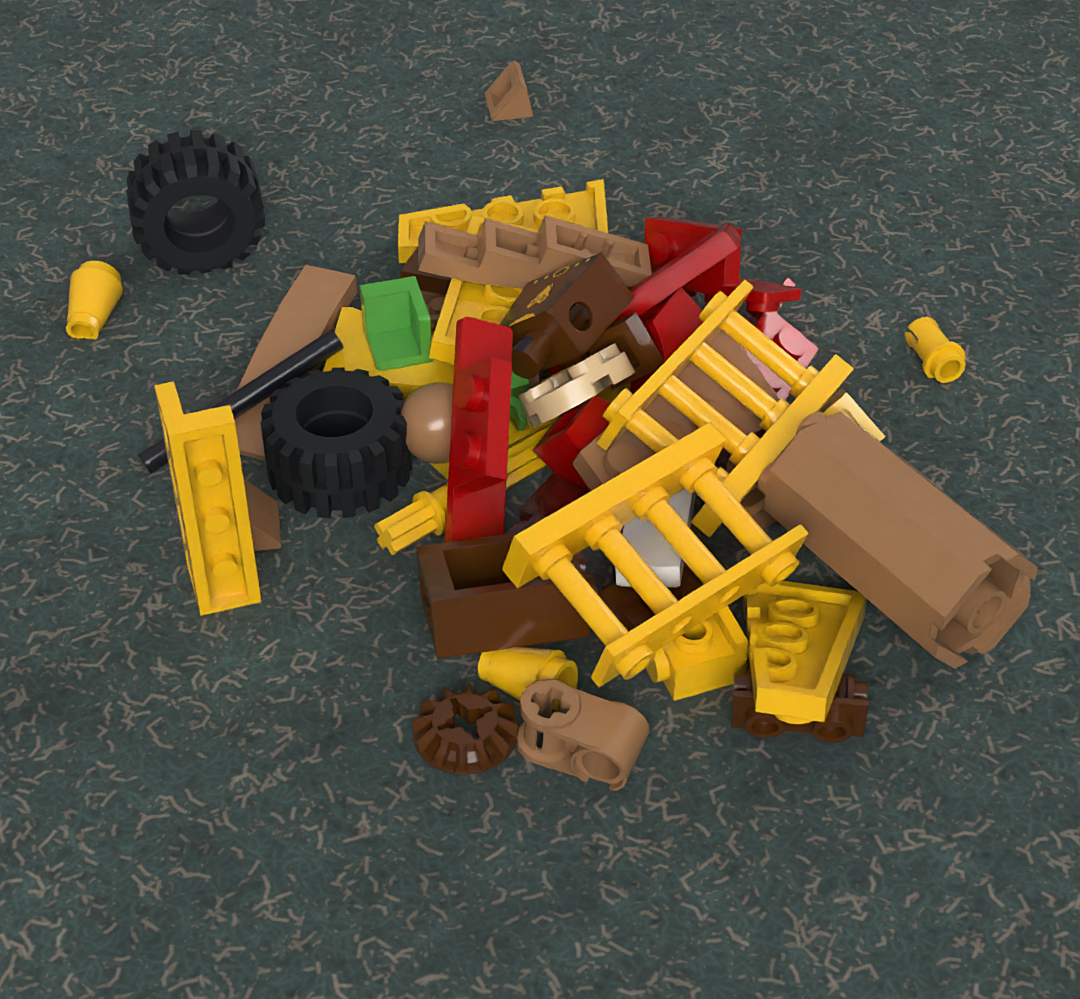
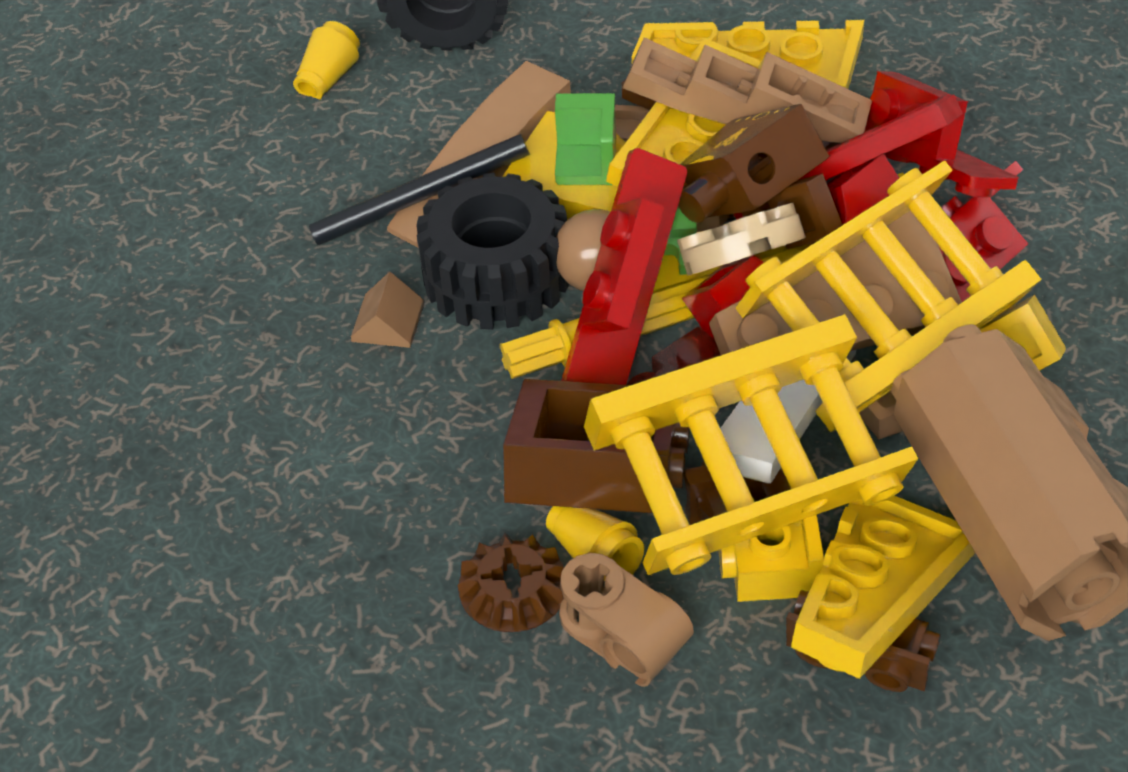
camera: 20 degrees right, 5 degrees up
(210, 502) = (319, 293): yellow fence -> none

